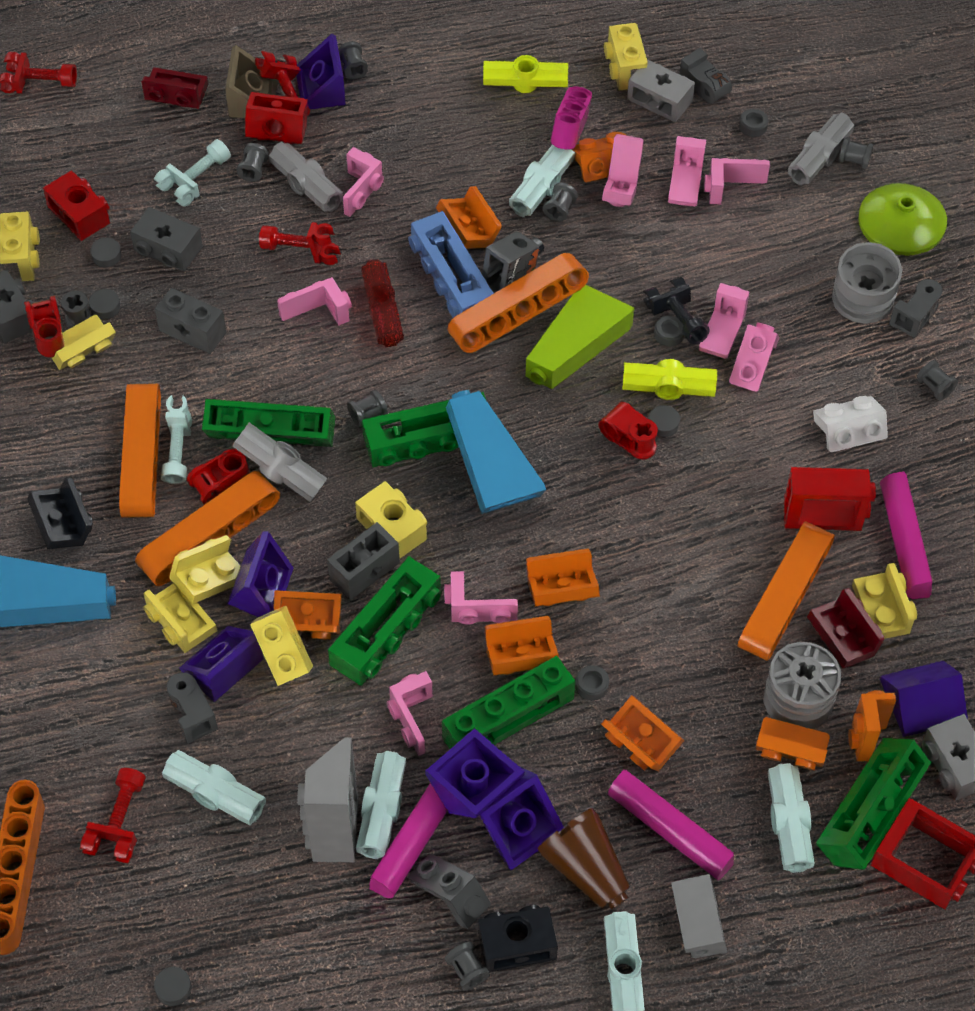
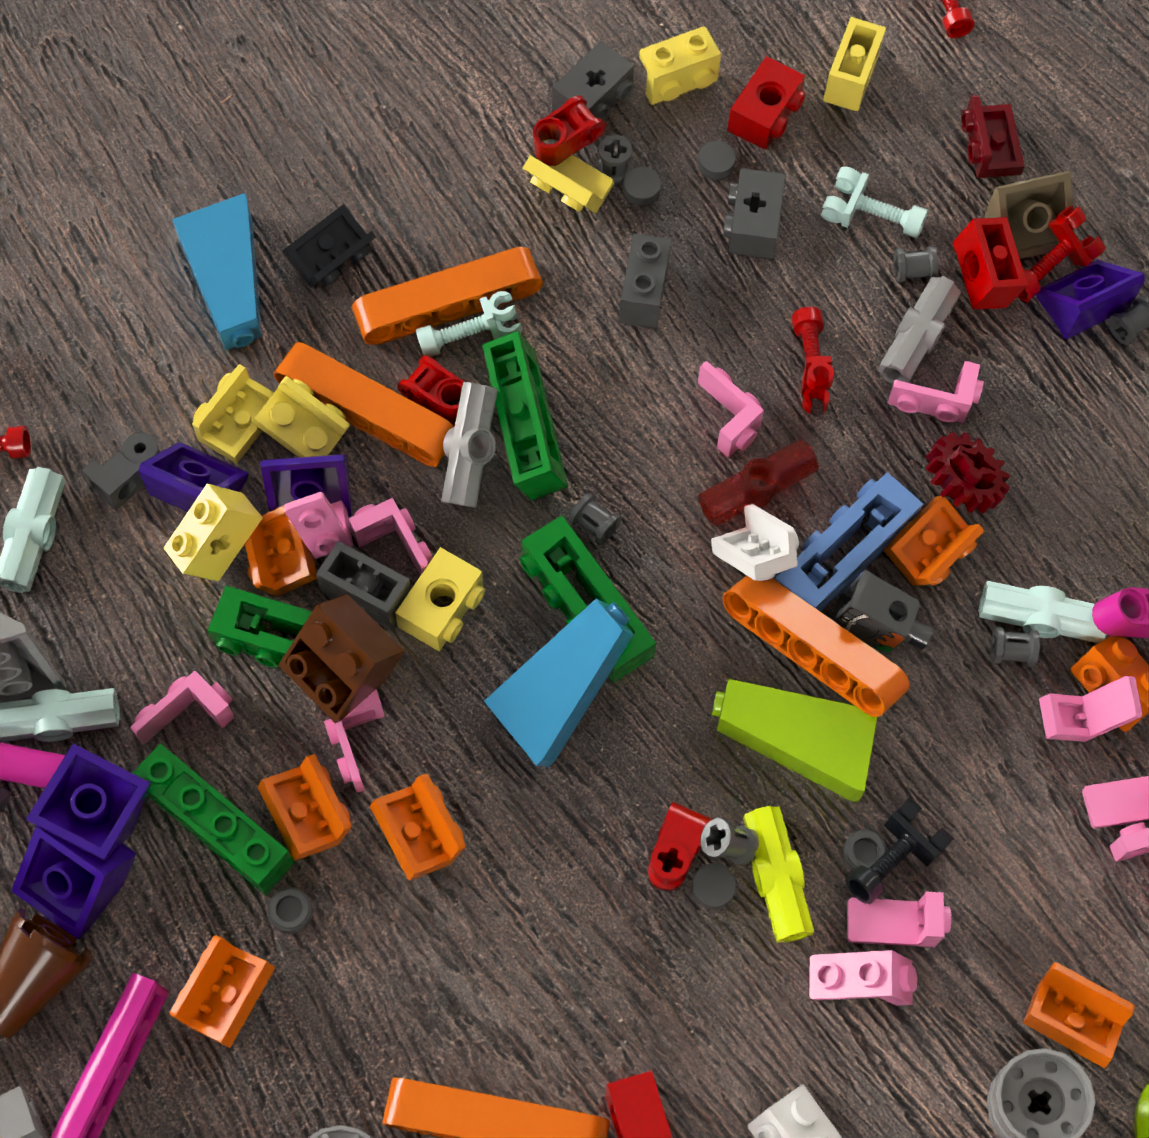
camera: 70 degrees right, 10 degrees up
(75, 140) = (854, 64): none -> light yellow brick
(305, 572) = (320, 523): none -> bright pink bracket
(328, 529) = (381, 519): none -> bright pink bracket
(423, 580) = (340, 656): none -> reddish brown slope
(427, 183) = (967, 472): none -> dark red gear
(433, 310) = (759, 548): none -> white bracket
(635, 399) = (733, 847): none -> dark grey bush
(813, 250) = (1078, 1014): none -> orange bracket

